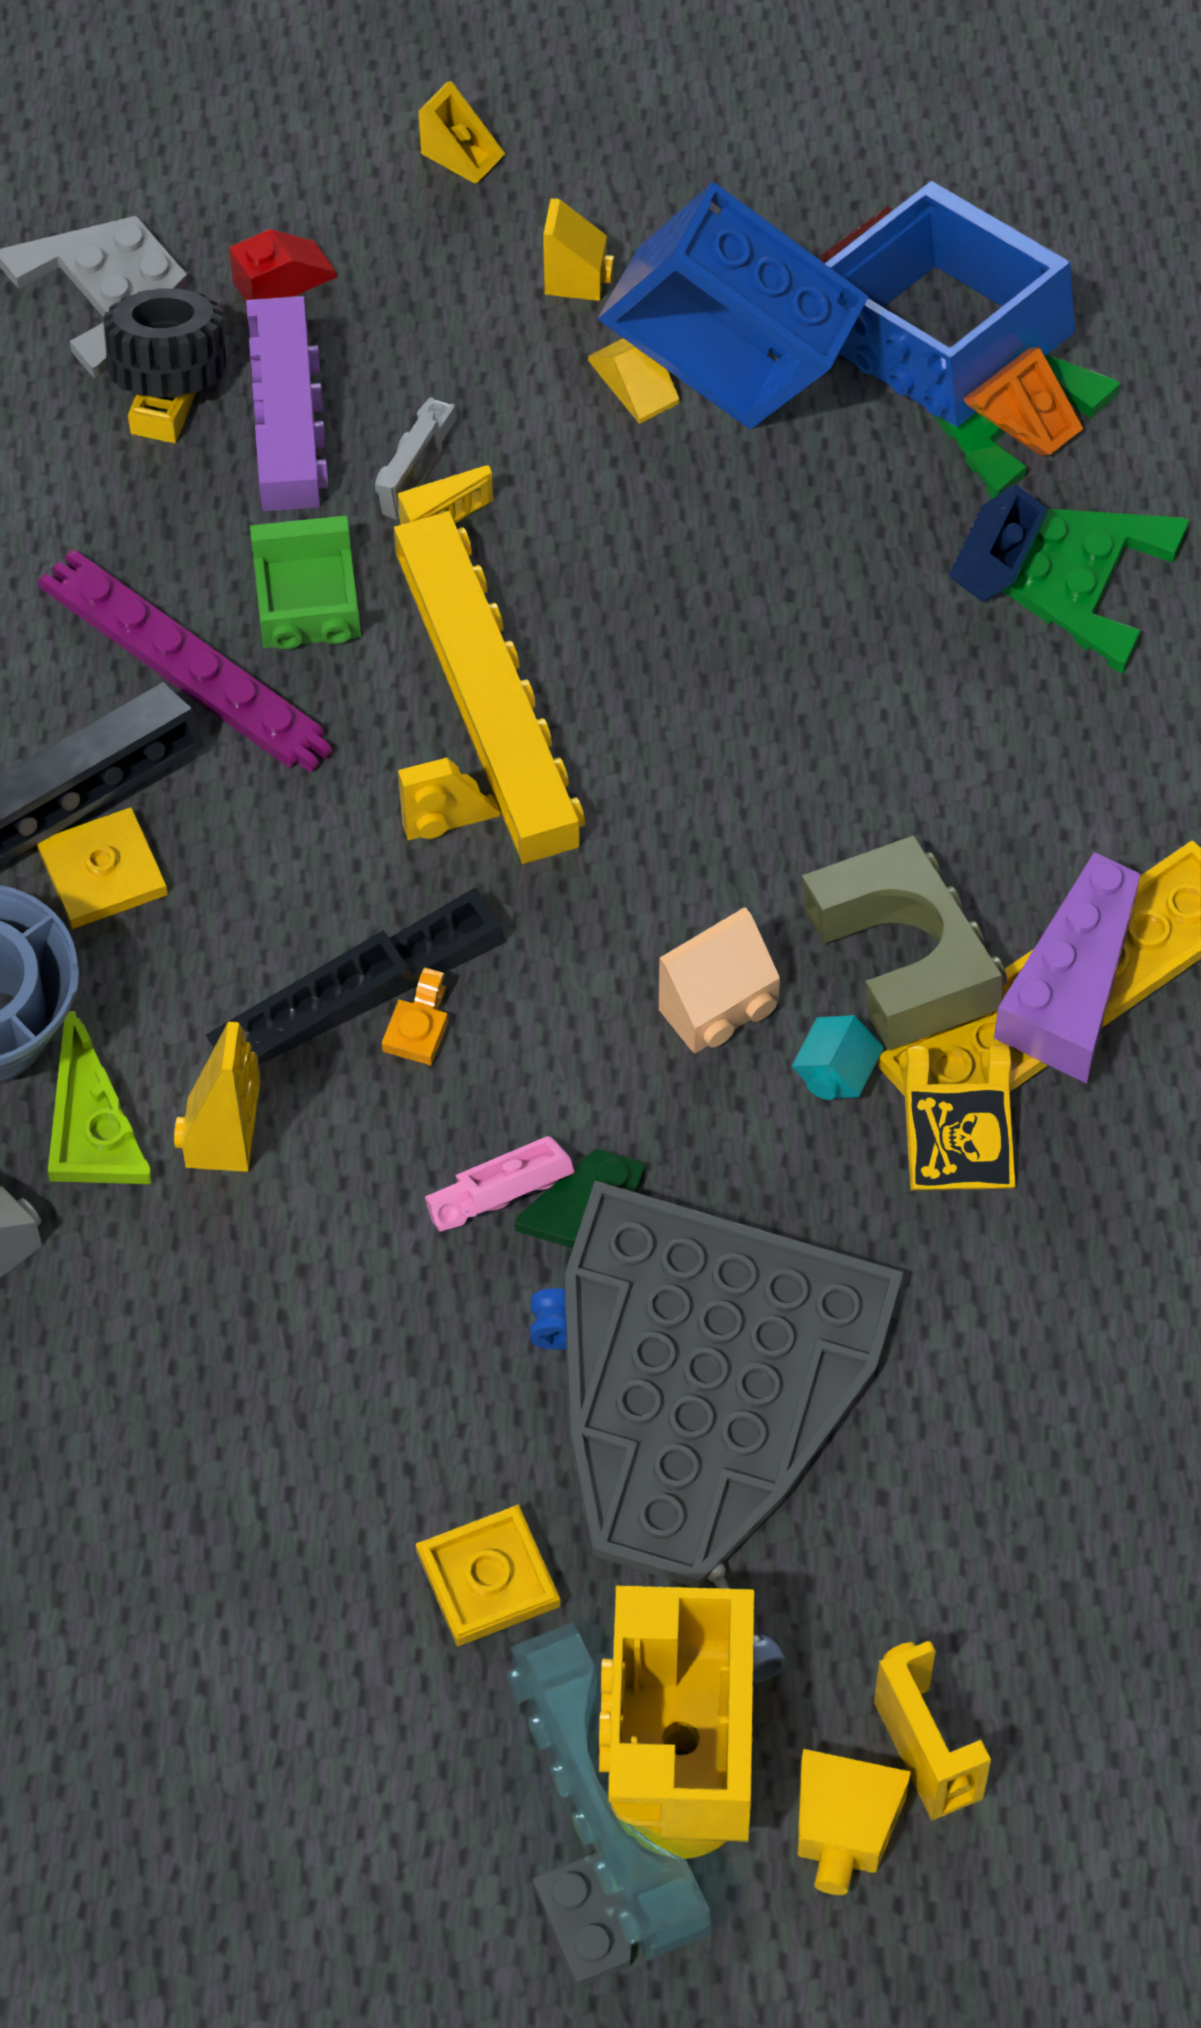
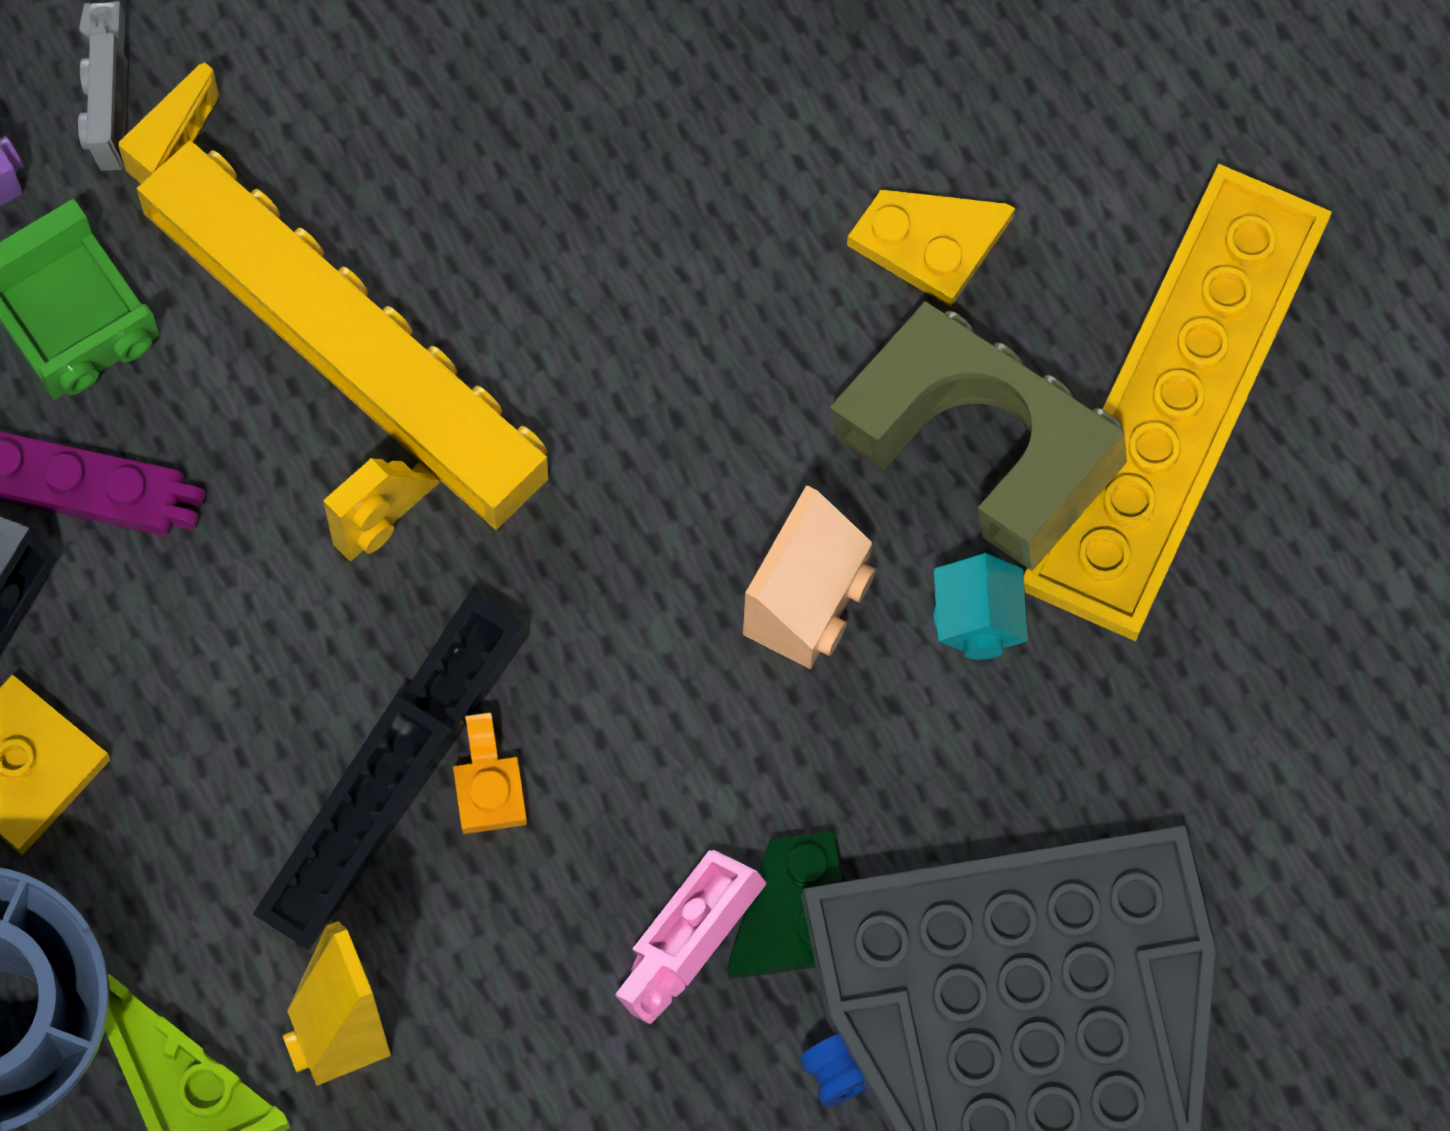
camera: 30 degrees left, 10 degrees up
(949, 804) = (930, 238): none -> yellow wing
(958, 1131) = (1154, 626): flag -> none
(1068, 979) = (1191, 394): medium lavender wedge -> none

